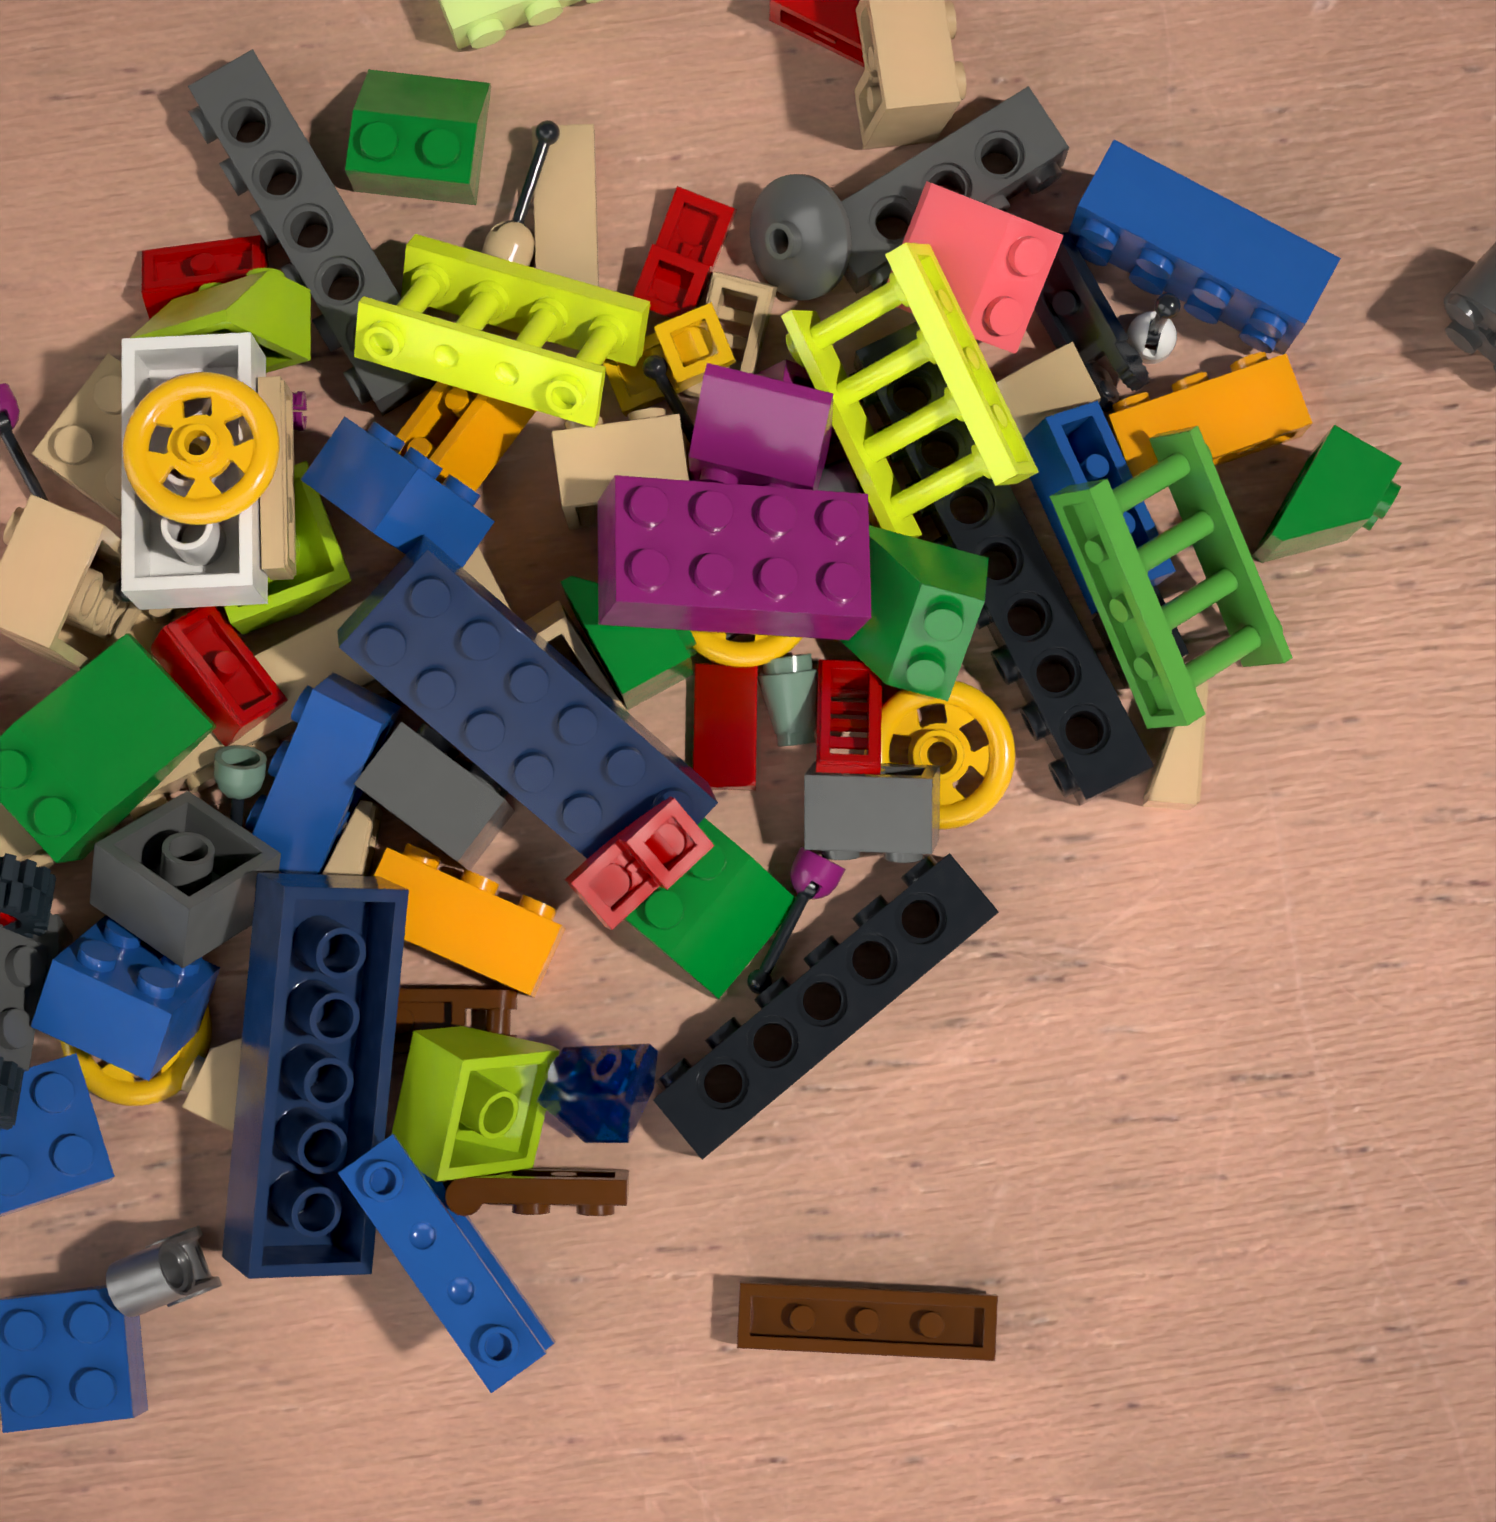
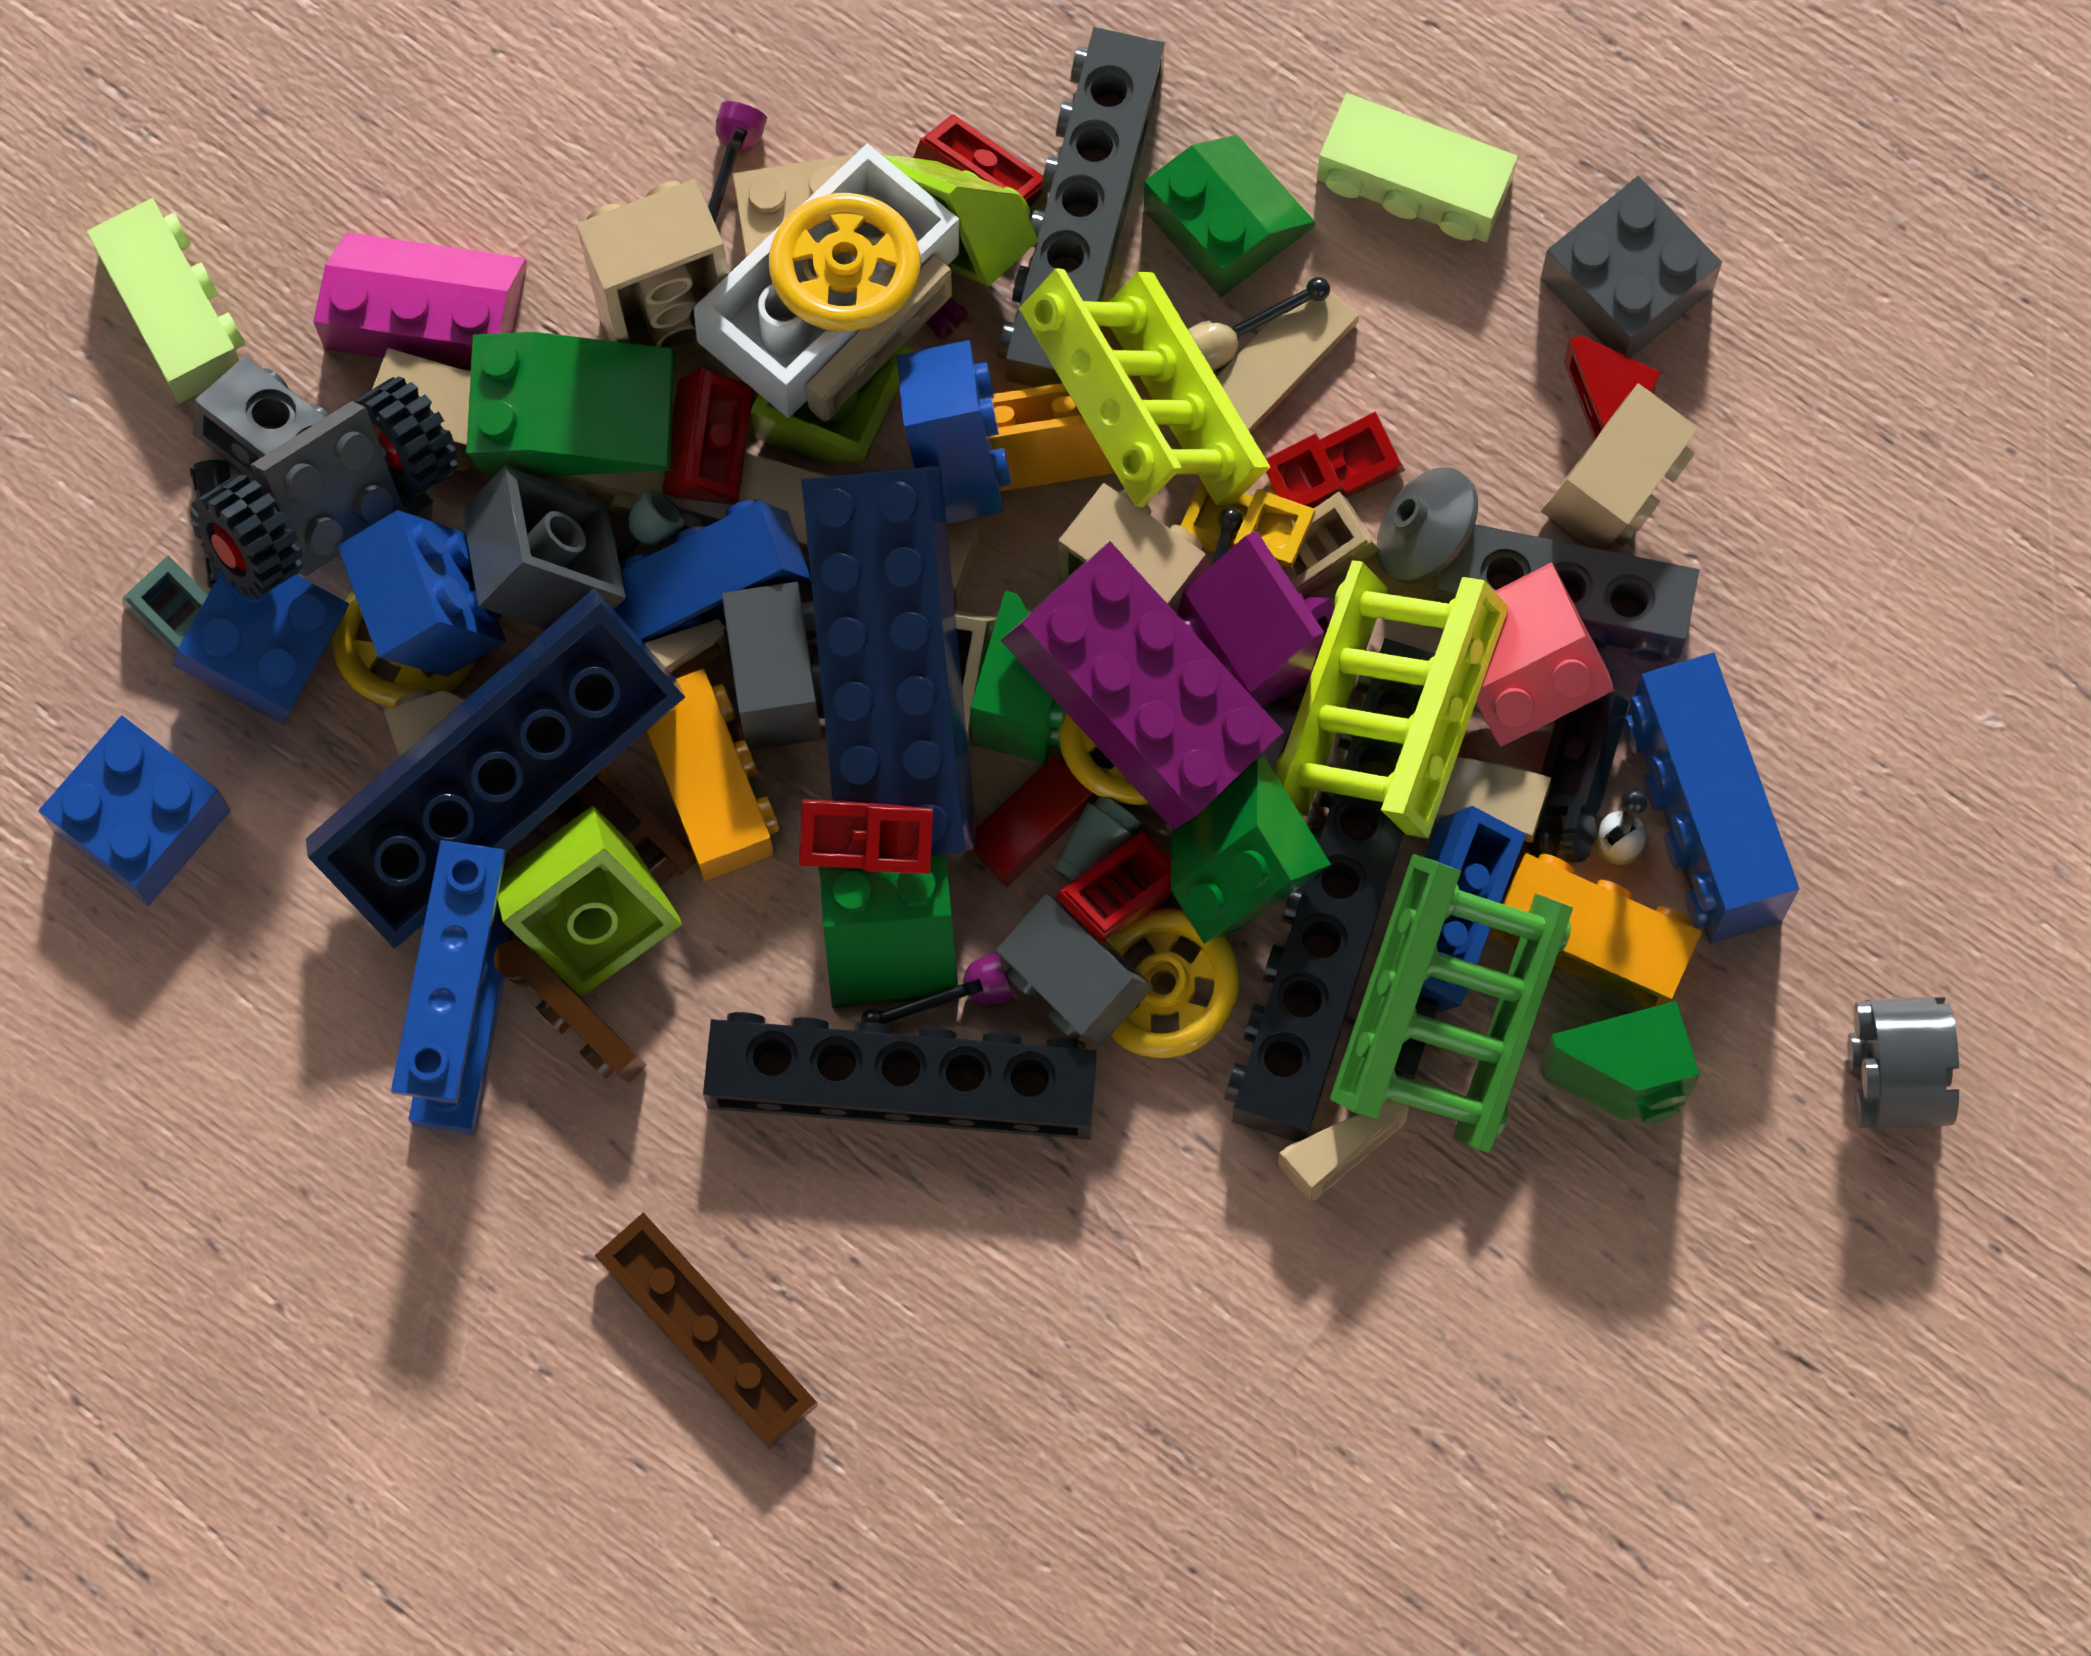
camera: 45 degrees right, 10 degrees down
(160, 1275) = (253, 813): flat silver piece -> none
(600, 1089) = (681, 976): clear blue slope -> none

